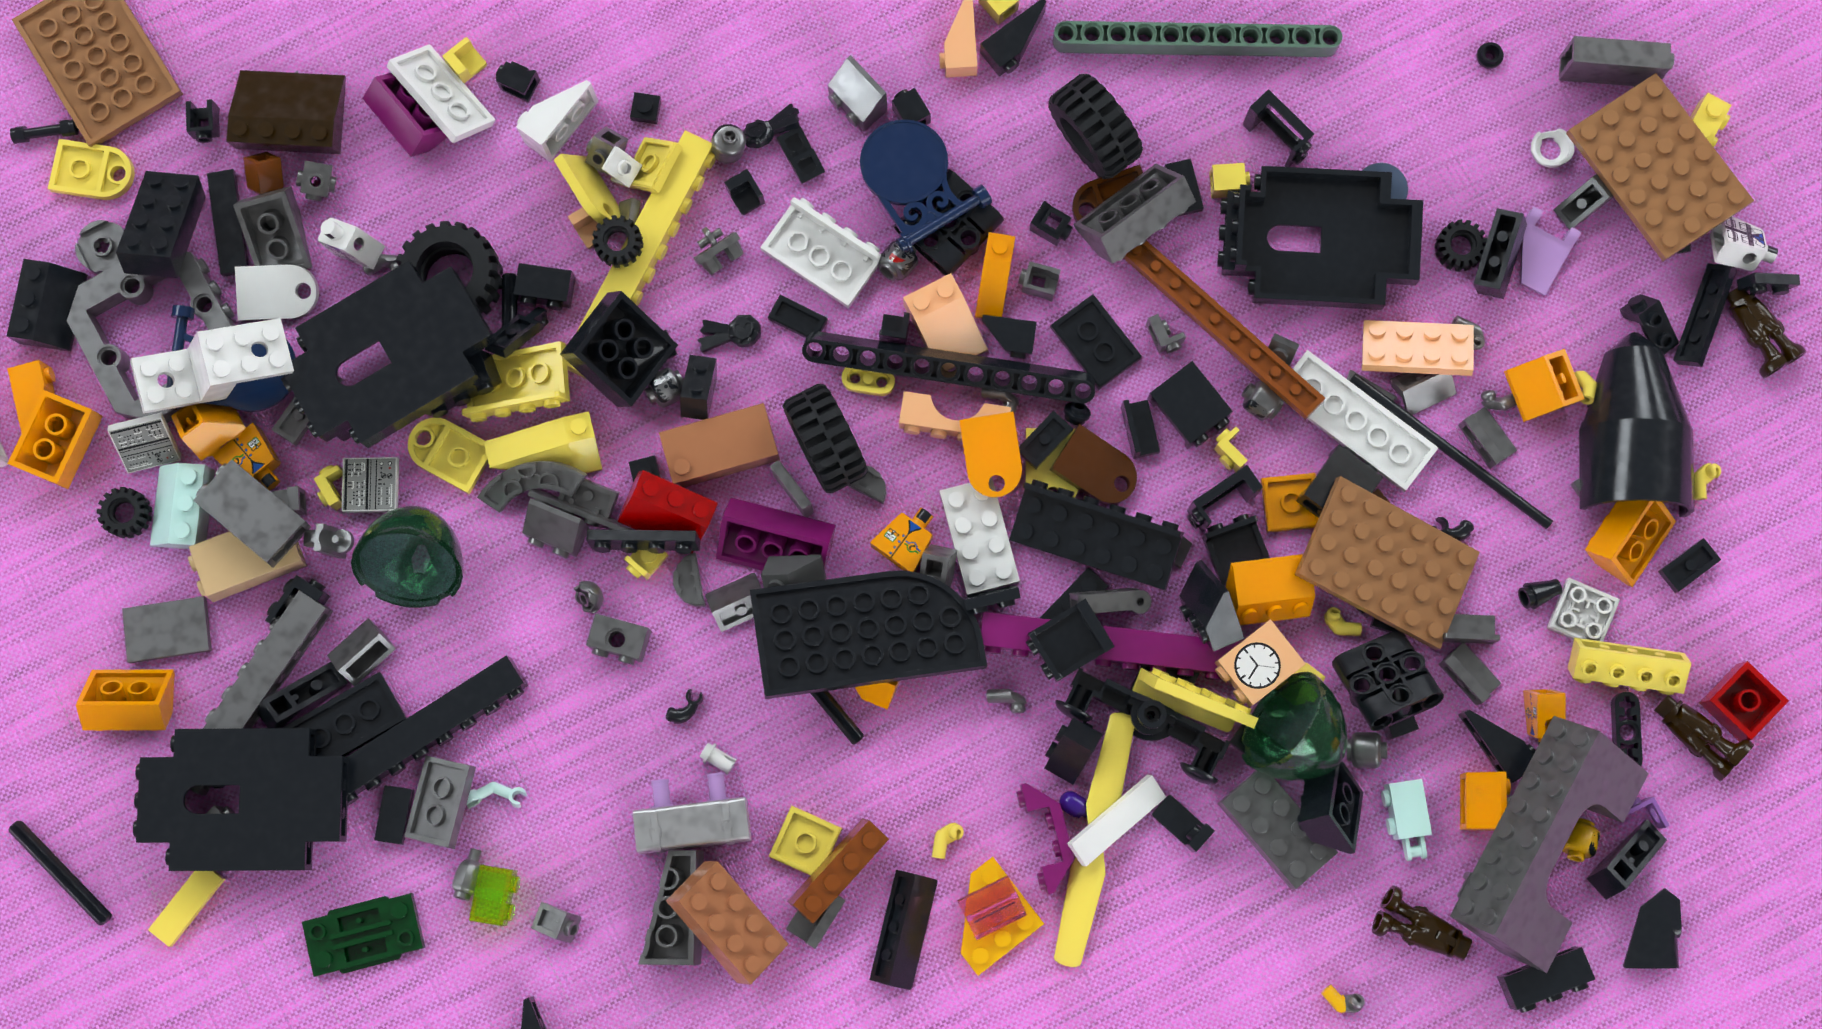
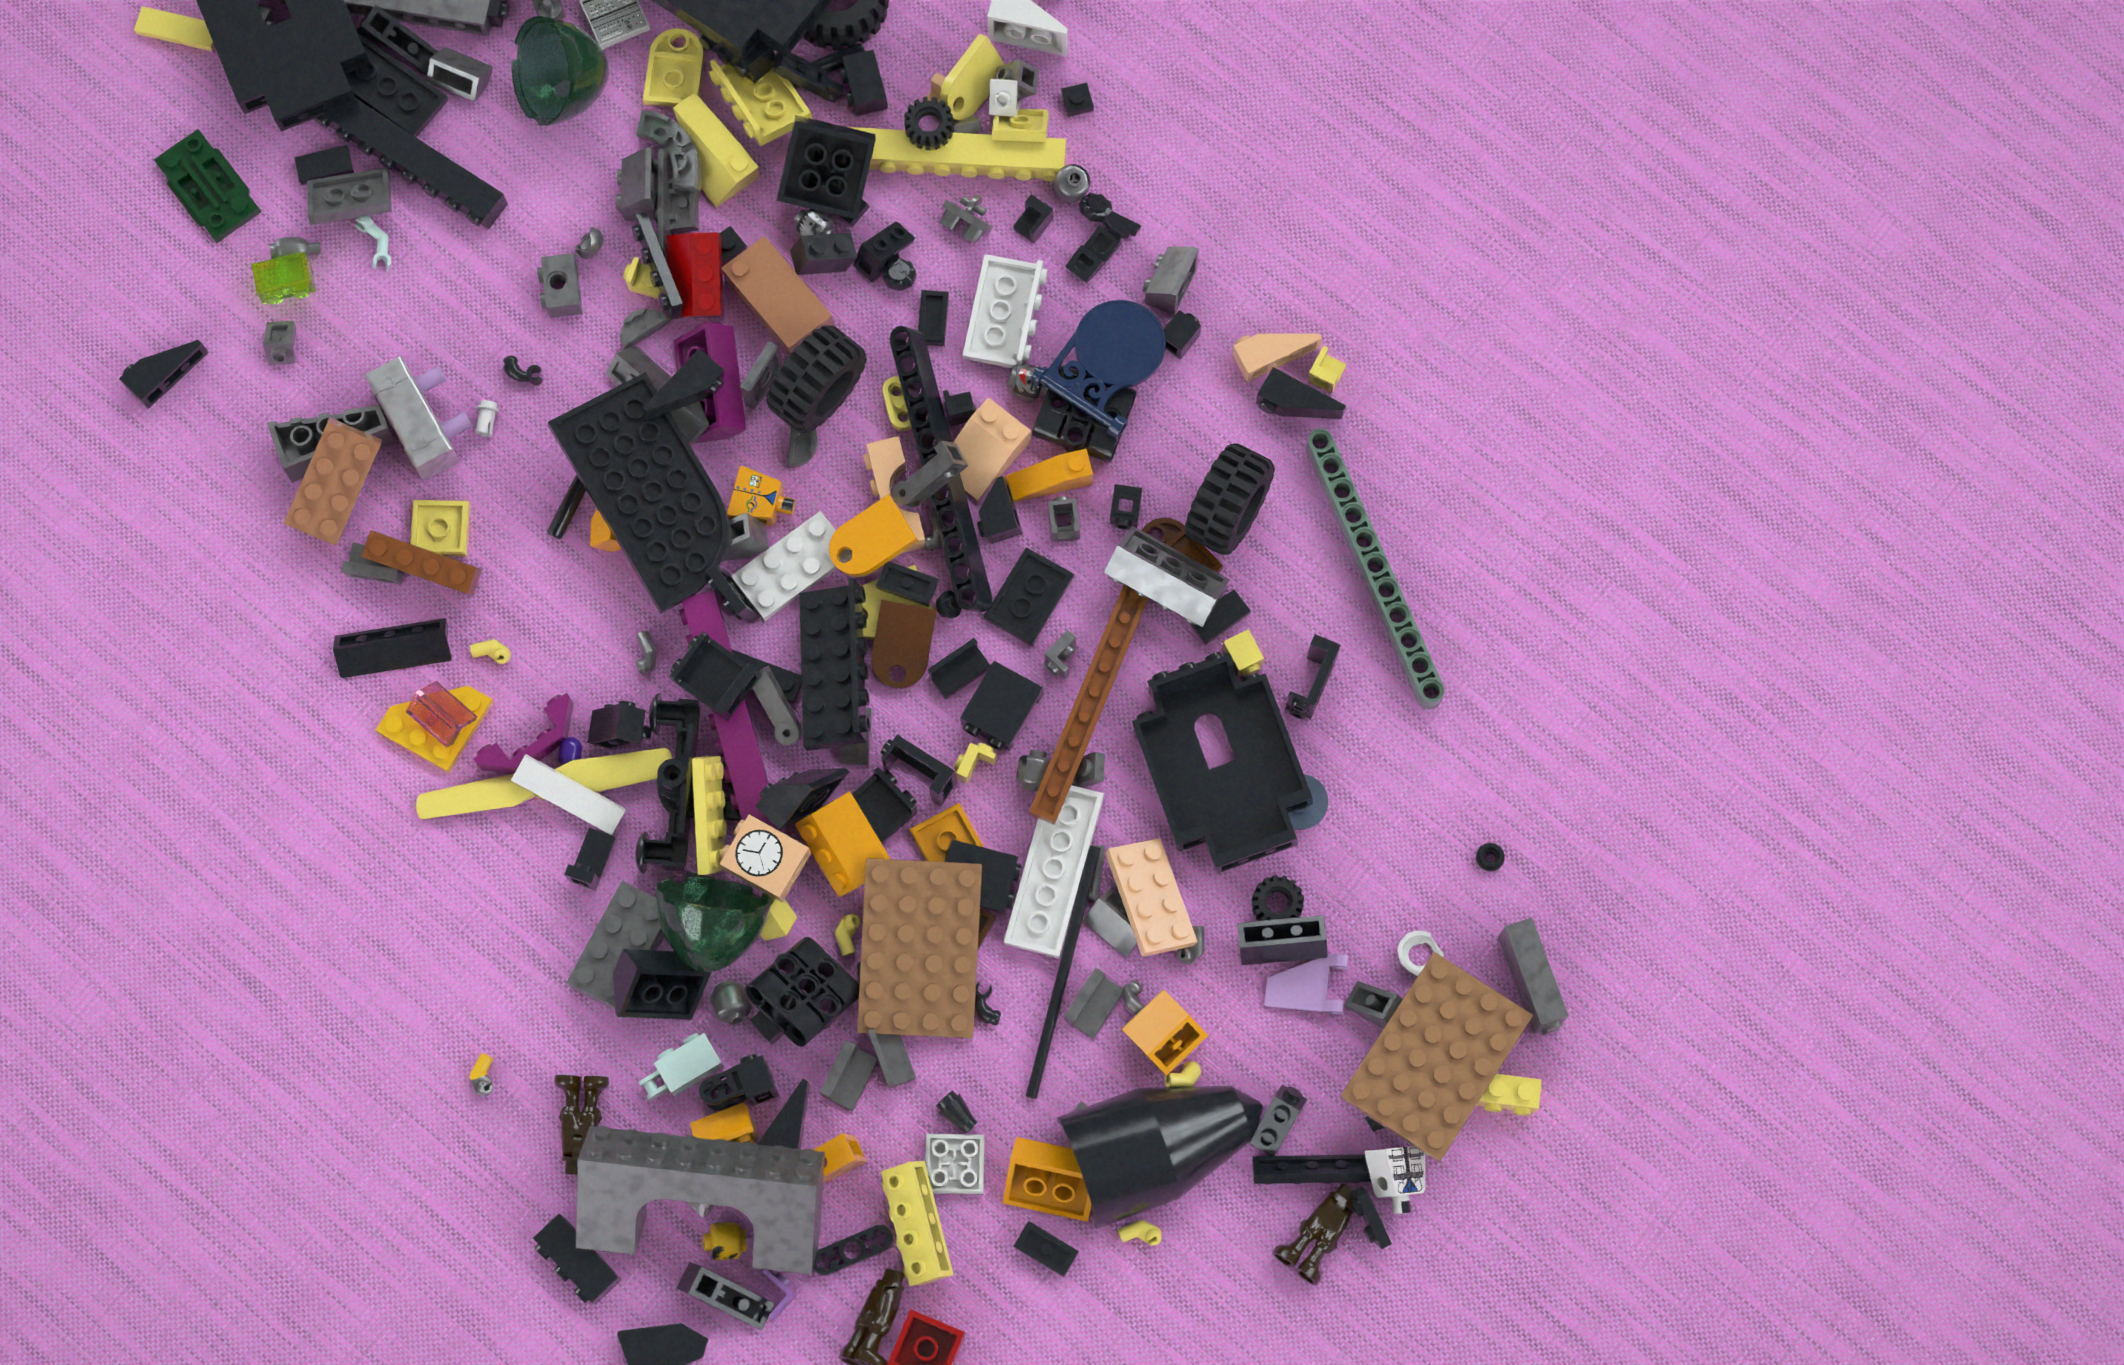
camera: 65 degrees right, 5 degrees down
(715, 334) = (880, 248): none -> black bracket
(780, 547) = (687, 386): none -> black slope
(961, 372) = (931, 476): none -> flat silver leg
(1449, 761) = (747, 1081): none -> black brick

